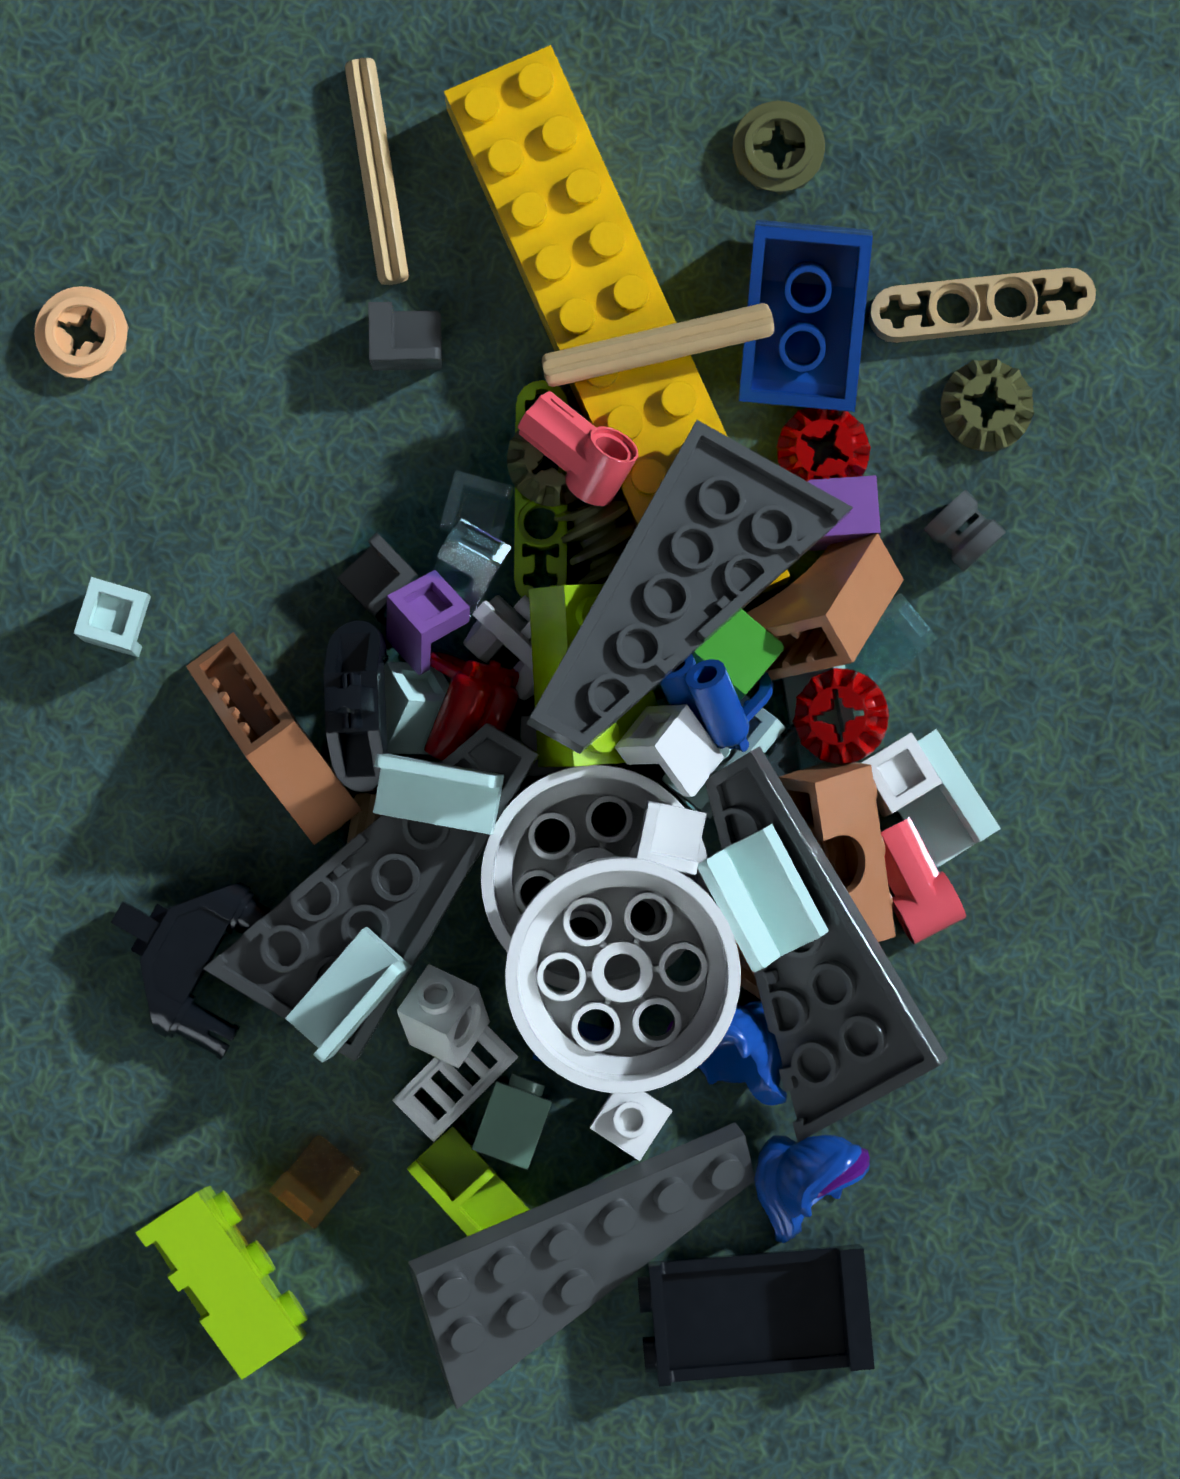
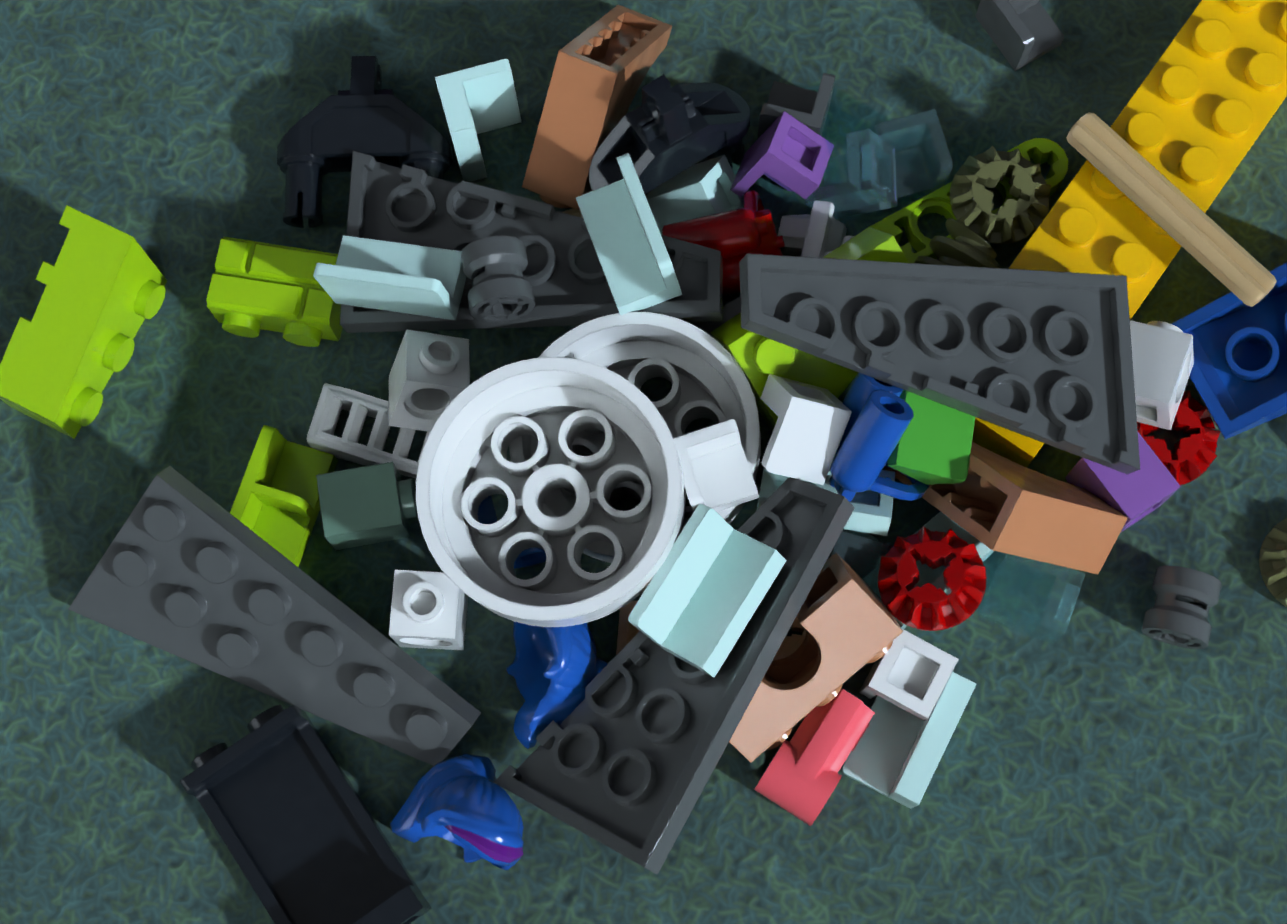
camera: 65 degrees right, 10 degrees down
(217, 855) = (476, 103): none -> light aqua panel
(283, 1097) = (272, 291): none -> lime brick
(316, 1181) = (213, 365): clear orange panel -> none
(407, 915) = (497, 277): none -> dark grey wheel
(591, 455) = (1028, 206): coral piece -> none
(775, 433) = (1160, 369): none -> white brick

